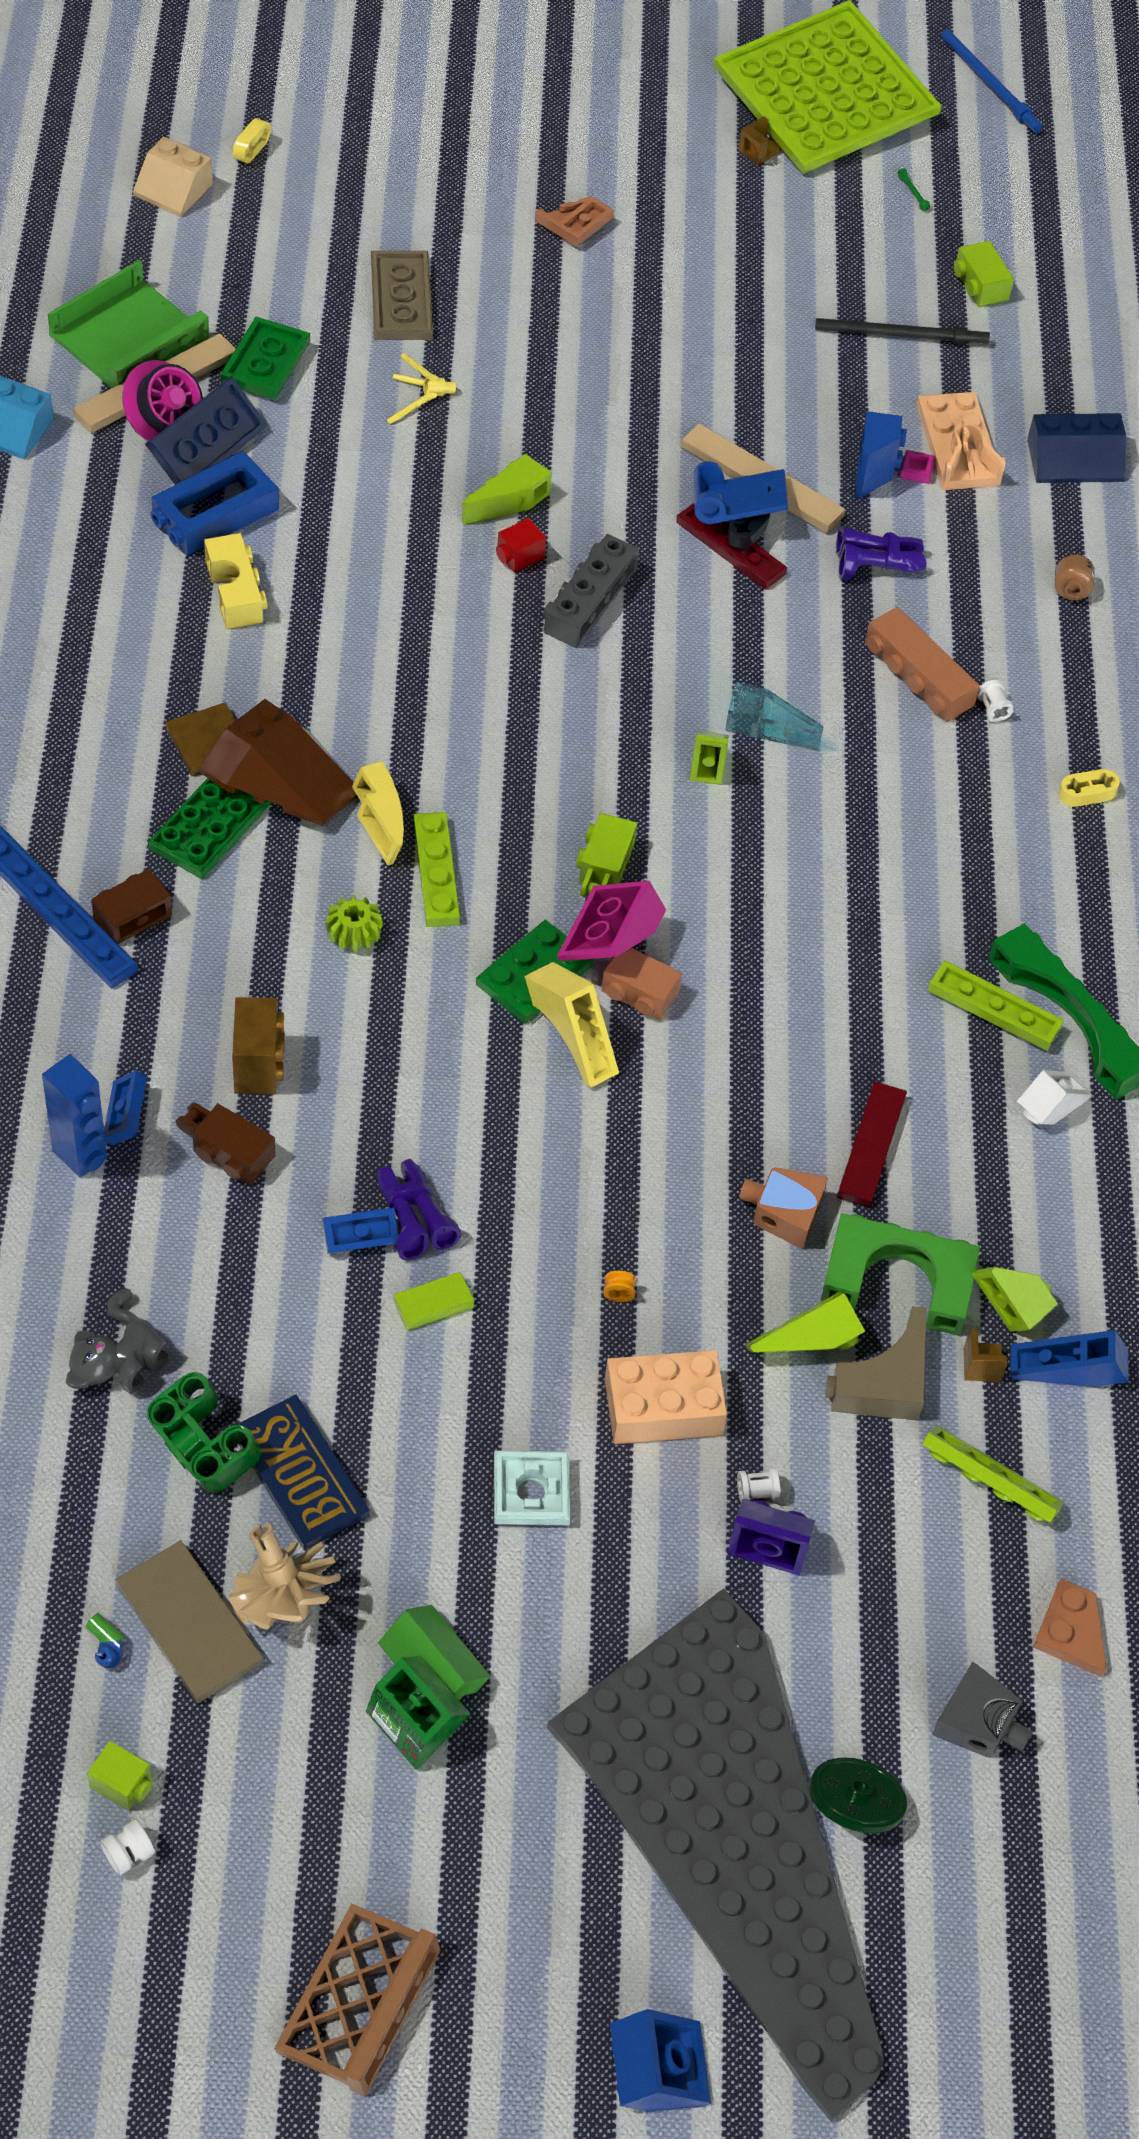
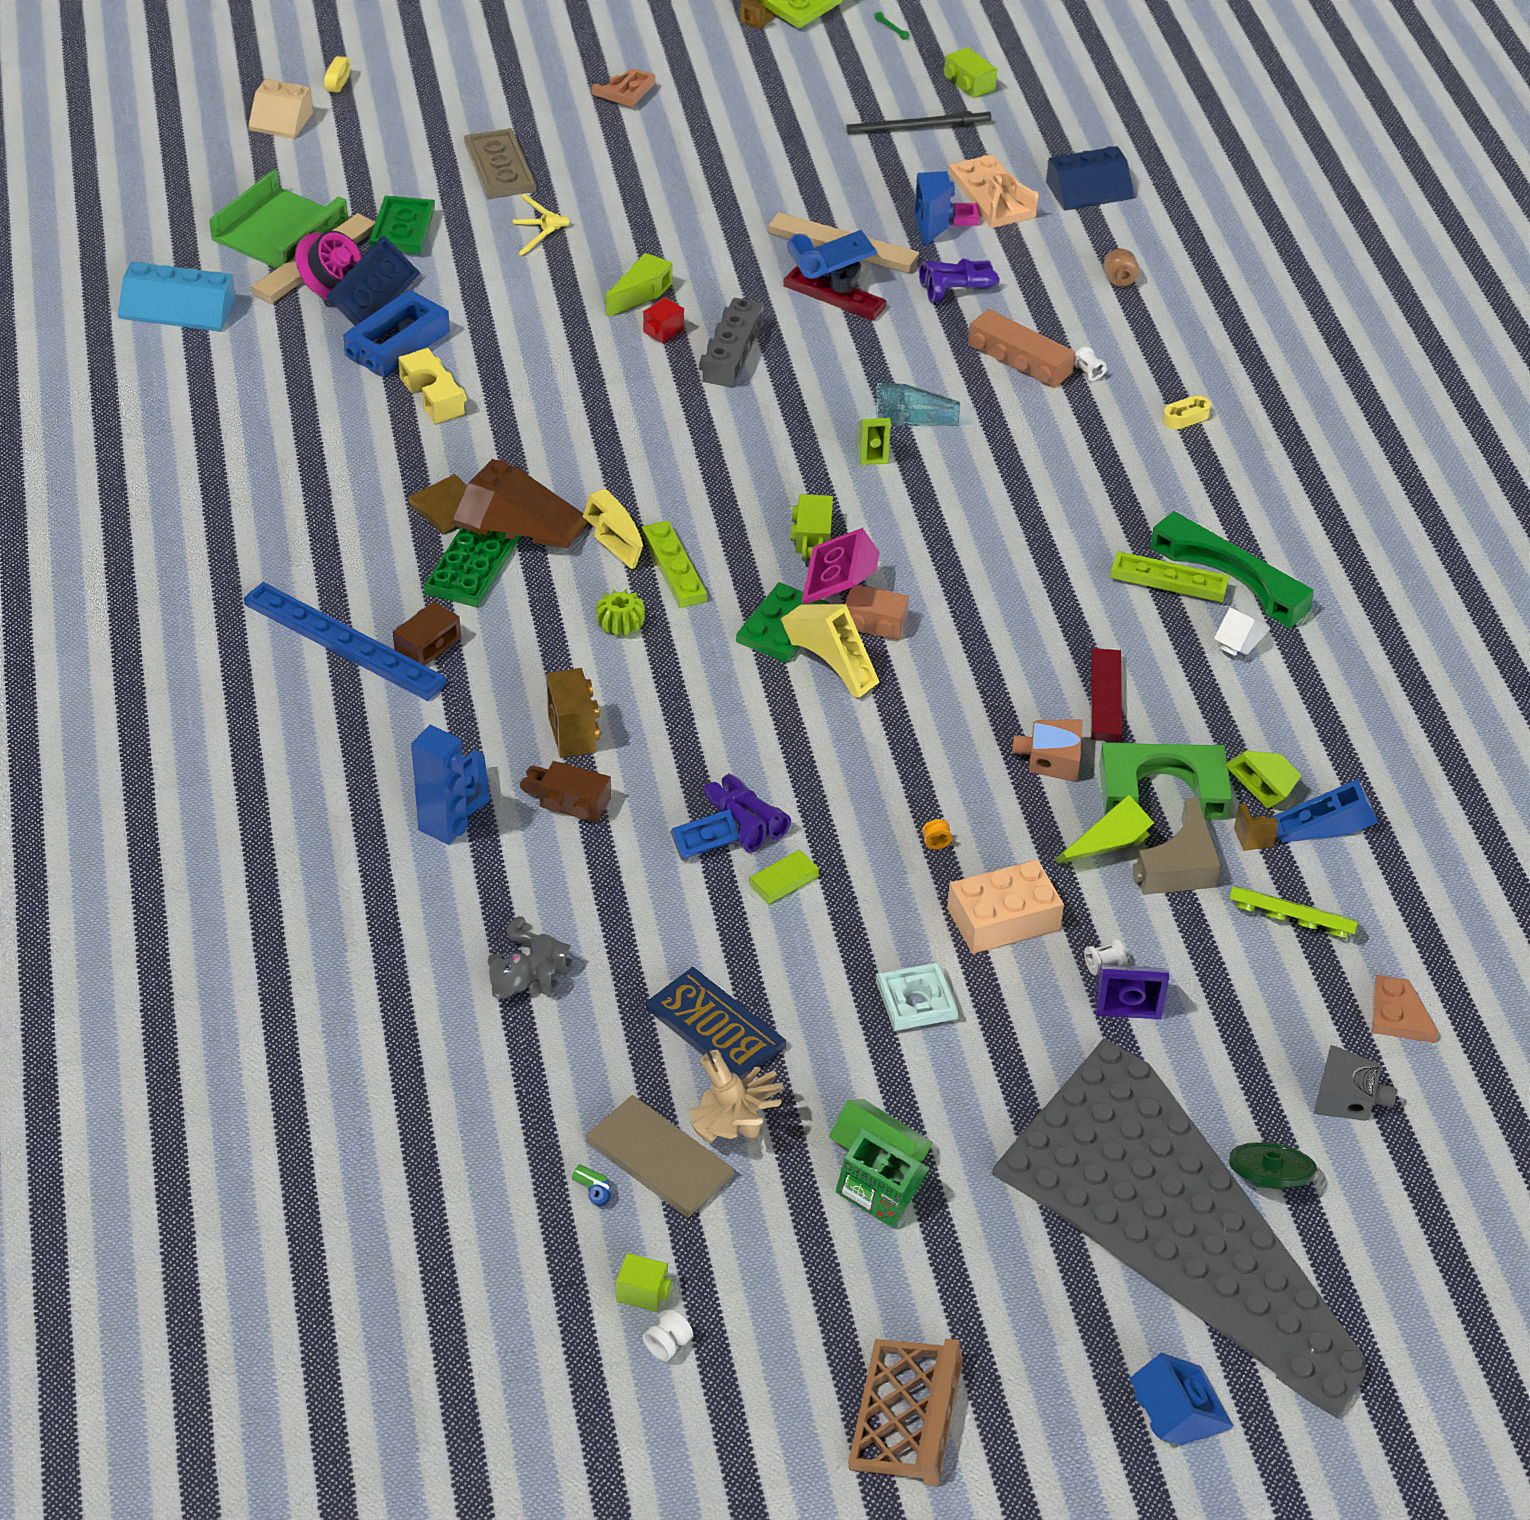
camera: 10 degrees left, 10 degrees down
(189, 1441) = (619, 1019): green beam -> none

